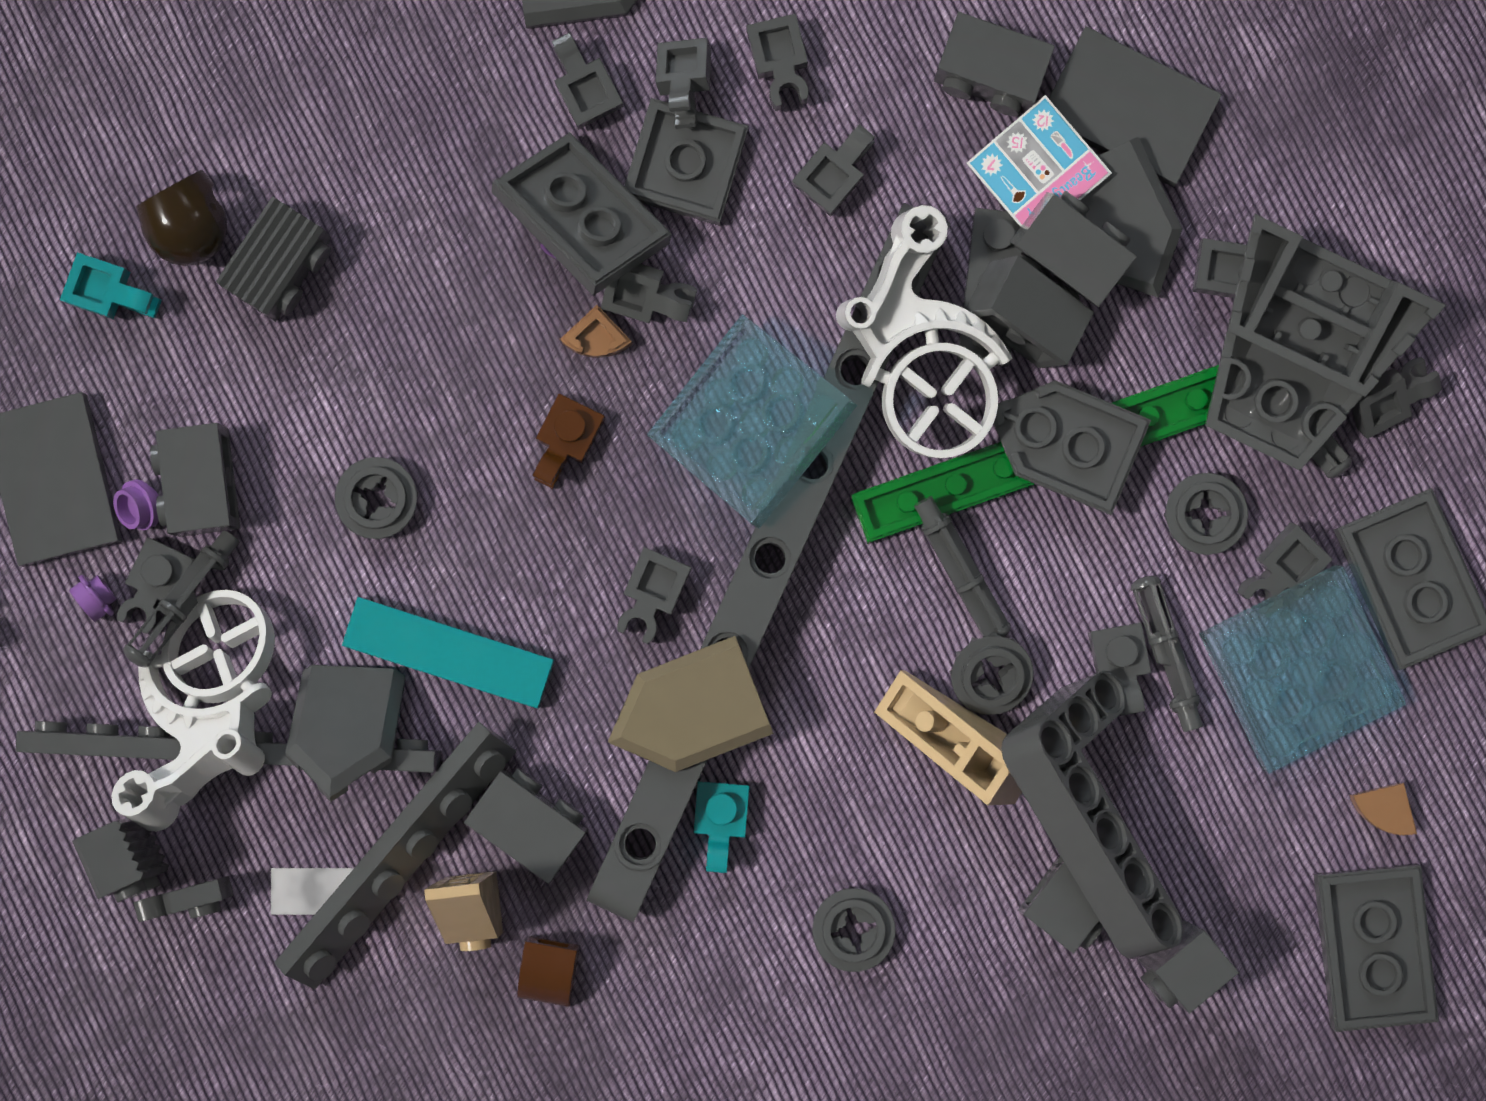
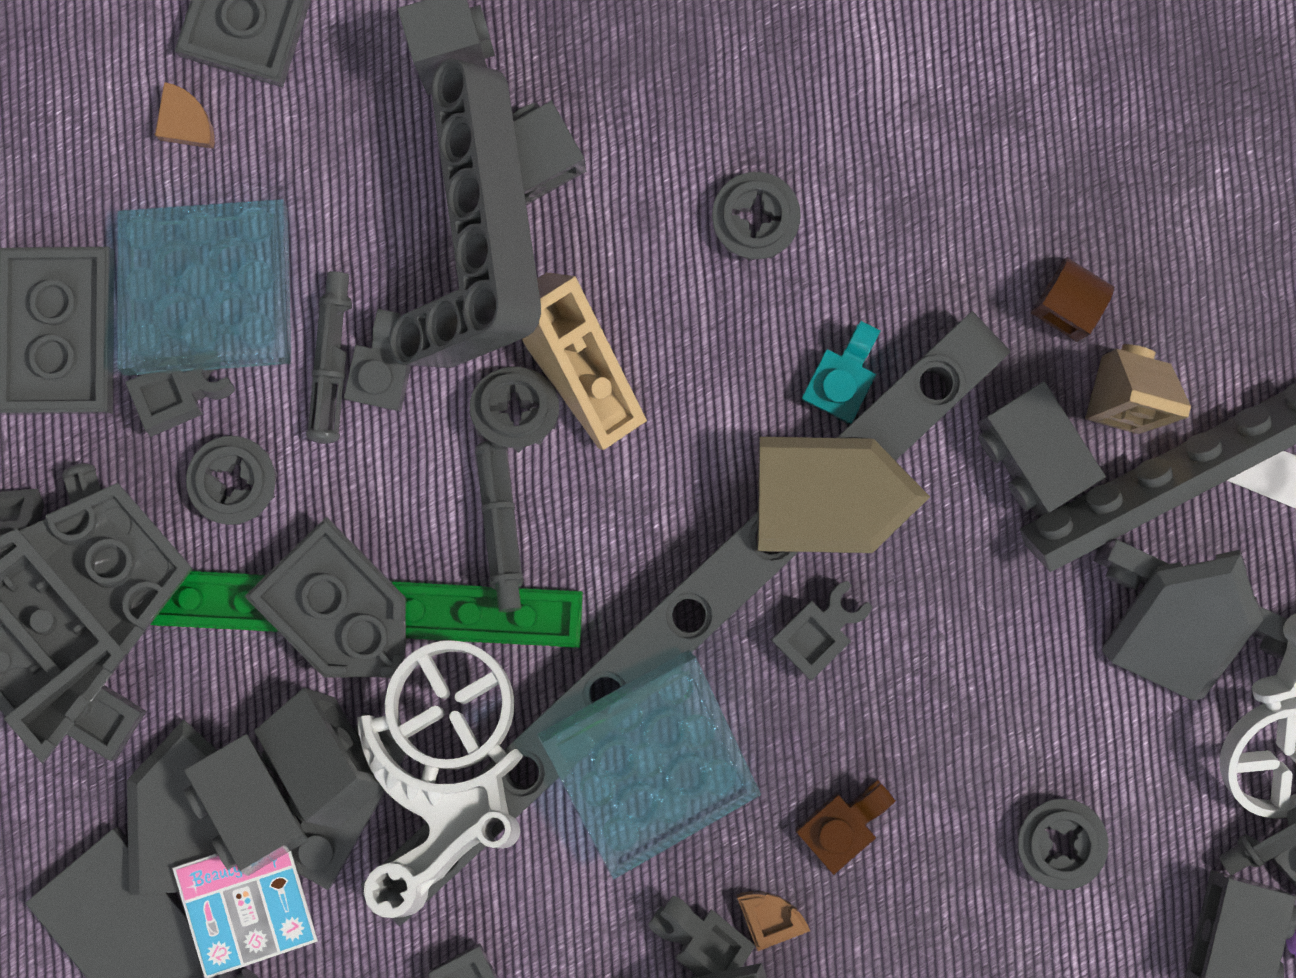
camera: 160 degrees left, 0 degrees up
(448, 652) = (1050, 656): teal tile -> none

